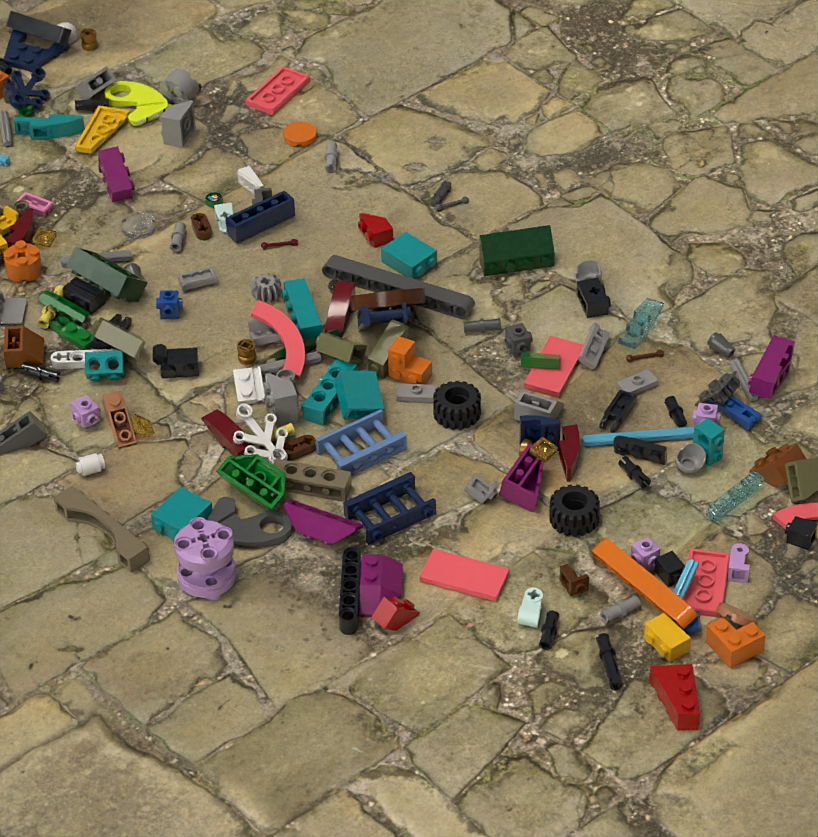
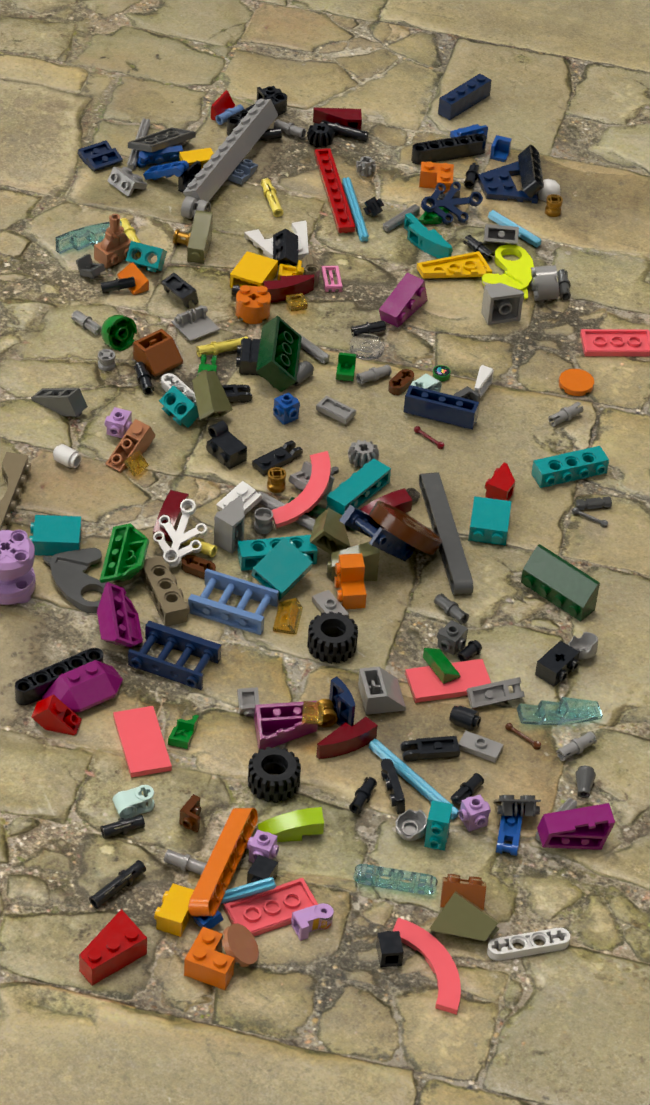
camera: 50 degrees right, 0 degrees up
(63, 306) = (223, 350): green hinge -> none
(84, 74) = (523, 233): none -> medium azure axle
(120, 212) = (368, 328): none -> black axle
(155, 248) = (346, 367): none -> green bracket
(217, 341) = (277, 457): none -> black hinge
(393, 184) = (570, 466): none -> teal brick
(402, 422) = (288, 616): none -> clear yellow slope
(476, 546) = (183, 732): none -> green slope
(537, 343) = (474, 647): none -> black pin
(603, 375) = (465, 717): none -> black brick
(635, 524) = (294, 824): none -> lime slope
(682, 331) = (576, 746): none -> light grey pin

